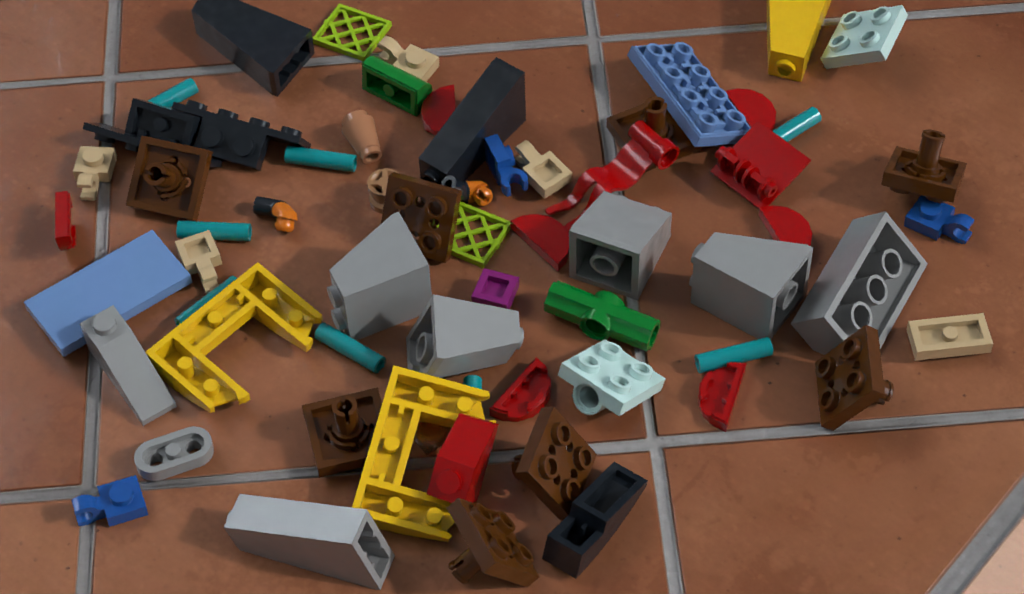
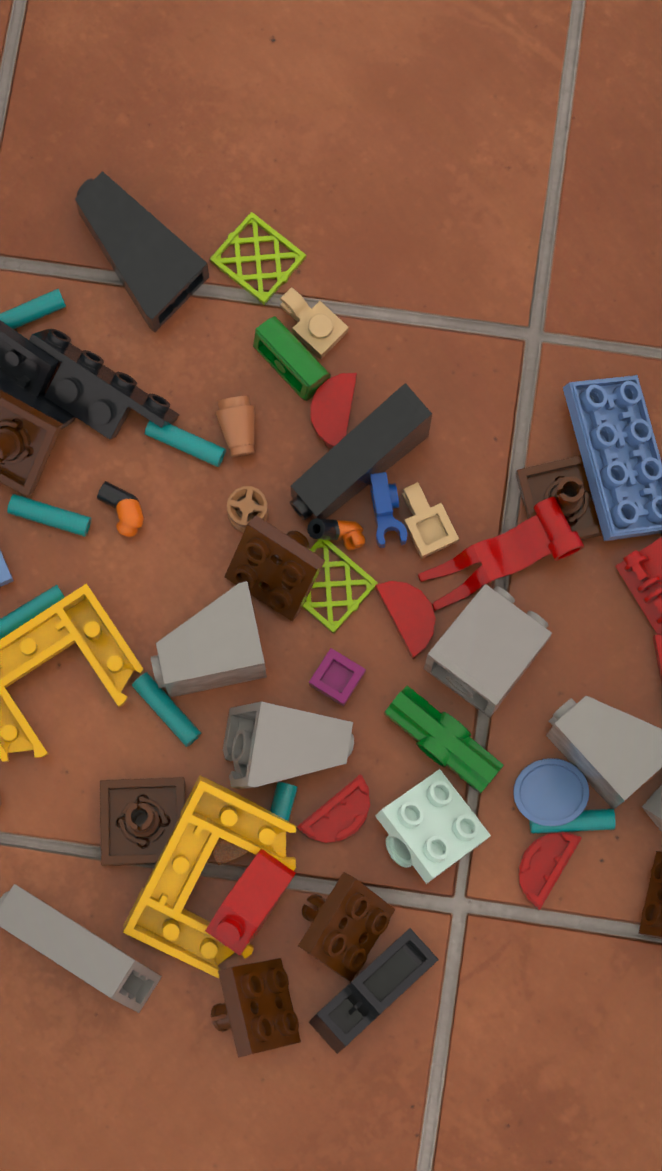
camera: 10 degrees right, 25 degrees up
(200, 256) = (27, 550): tan plate -> none
(708, 334) = (551, 792): none -> medium blue piece

